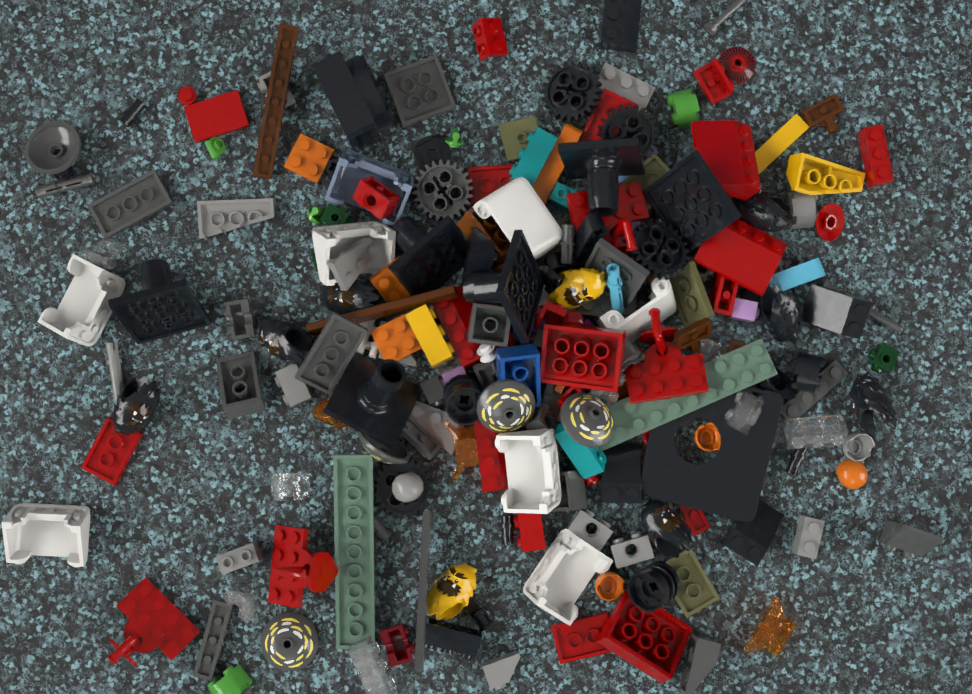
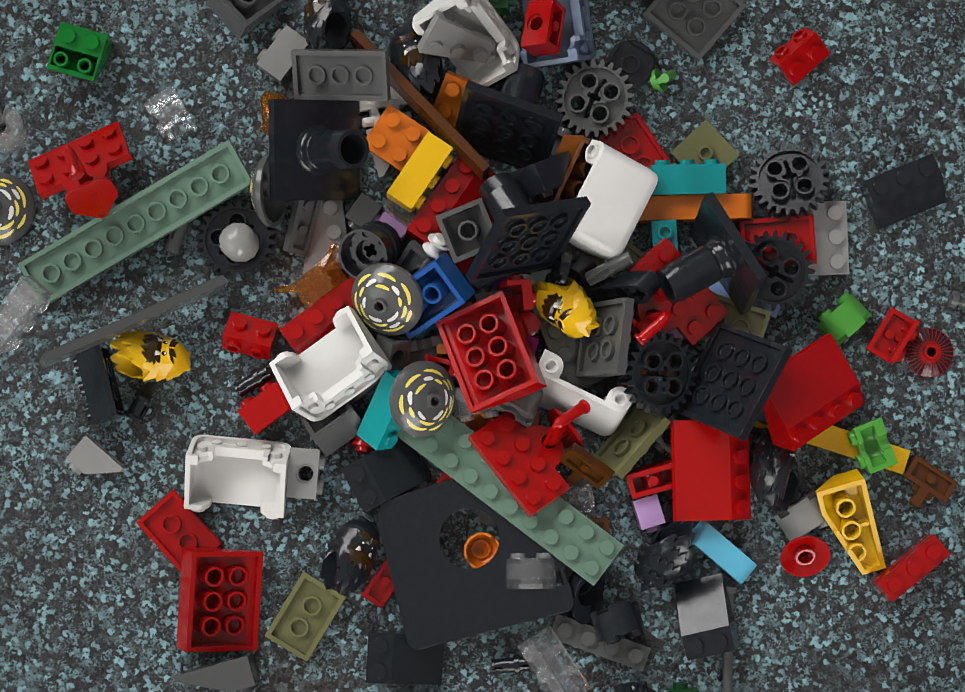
camera: 55 degrees right, 0 degrees up
(213, 525) = (79, 52): none -> green slope
(239, 557) = (60, 101): light grey brick -> none
(397, 644) = (59, 327): dark red cylinder -> none
(474, 515) = (249, 335): none -> red bracket
(609, 586) = (252, 529): orange hair -> none
(614, 283) = (592, 344): medium azure pin -> none
(642, 552) = (291, 528): light grey brick -> none
(653, 586) = (278, 577): black wheel -> none
(782, 136) = (872, 446): none -> bright green cylinder

